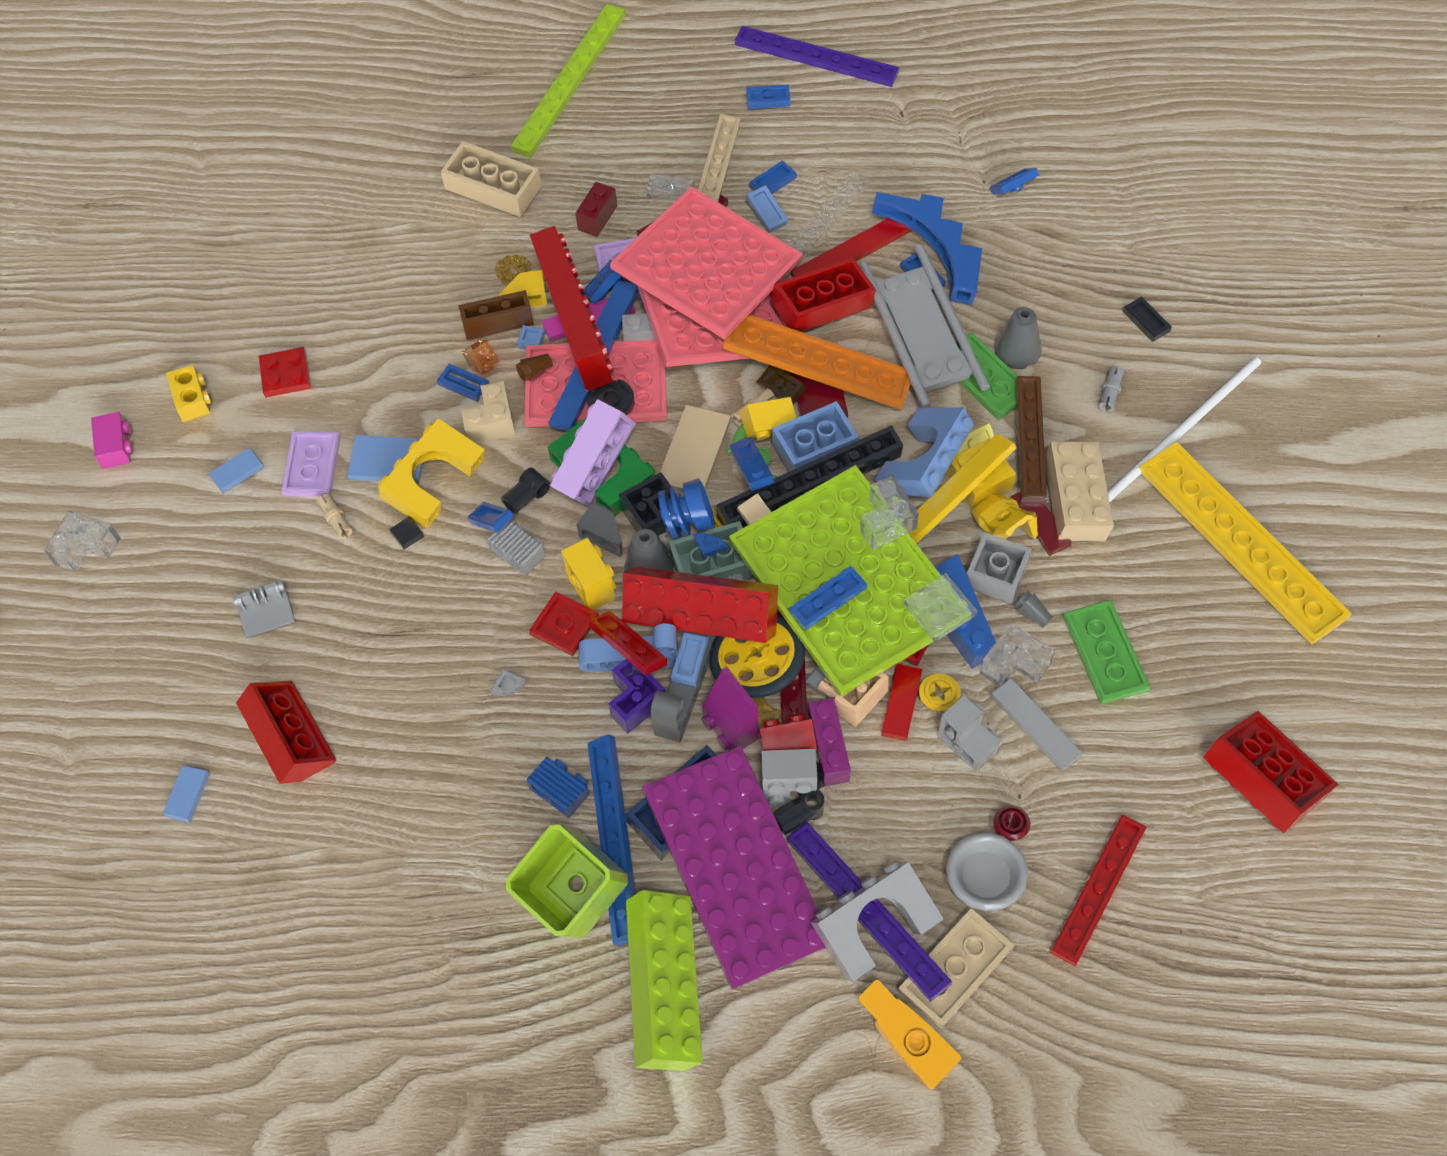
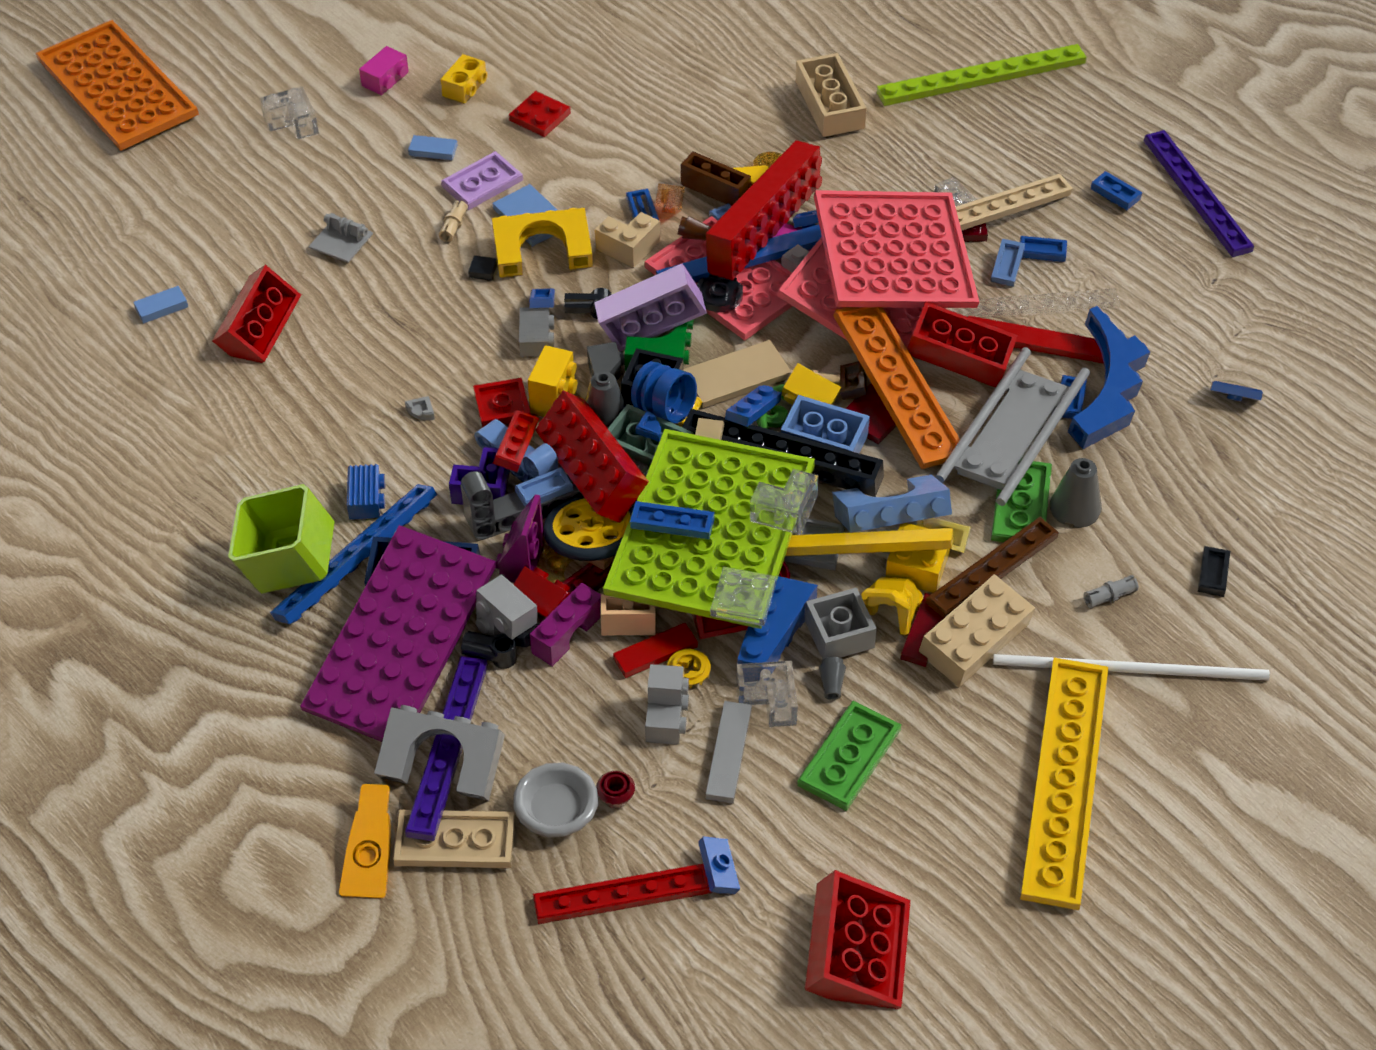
camera: 45 degrees right, 10 degrees down
(596, 209) = (879, 168): dark red brick -> none
(663, 981) = (262, 655): lime brick -> none
(1132, 807) = (719, 865): none -> plate

